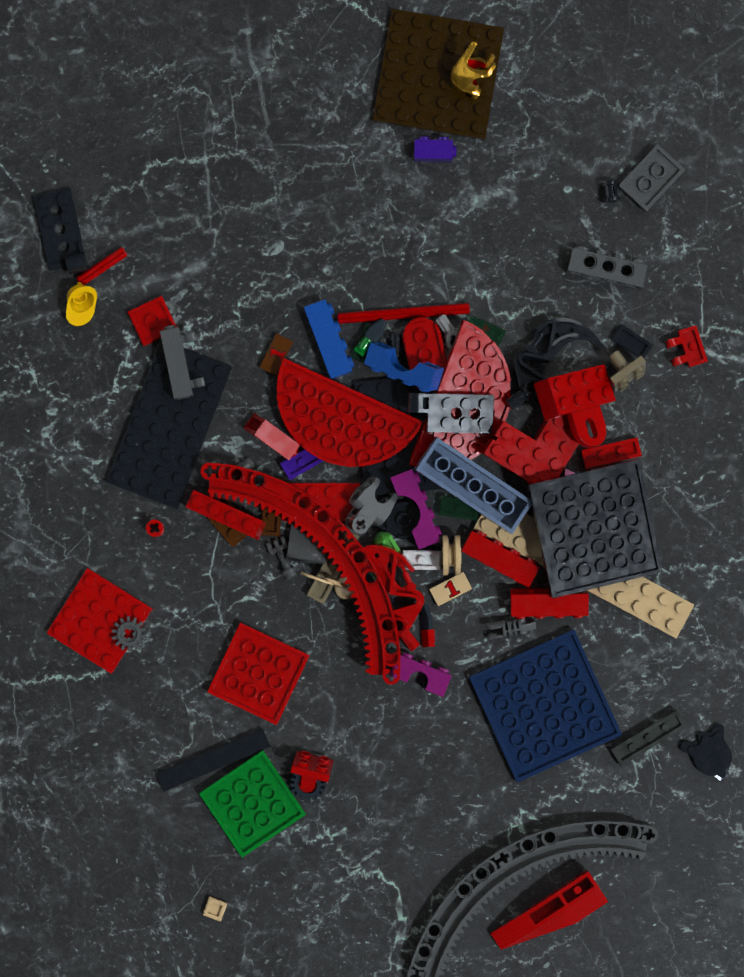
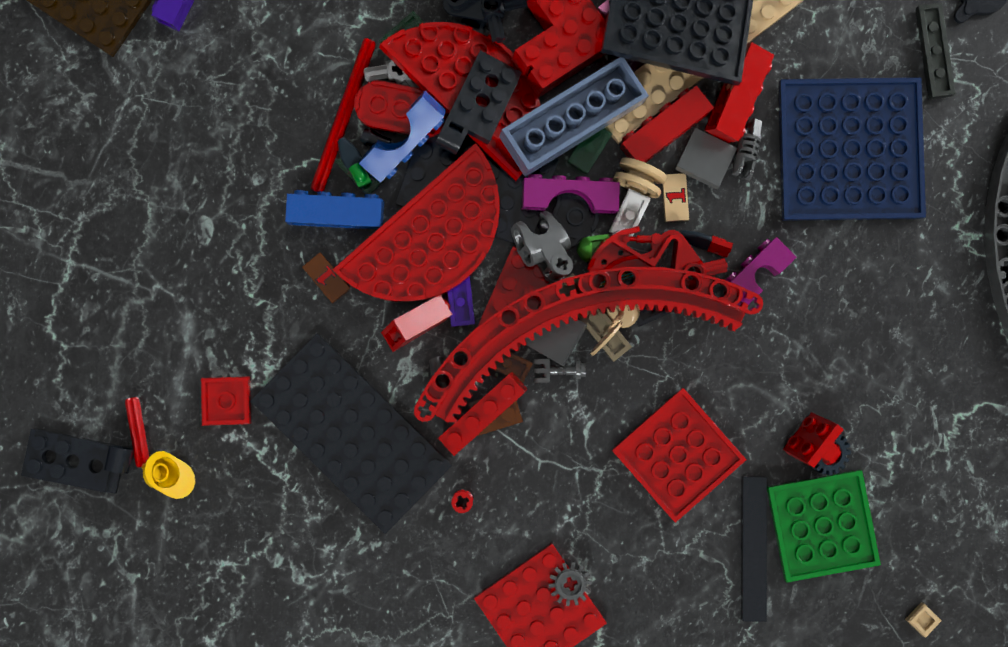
camera: 65 degrees left, 0 degrees up
(176, 362) = (283, 393): dark grey brick -> none
(489, 599) = (706, 158): none -> dark grey tile

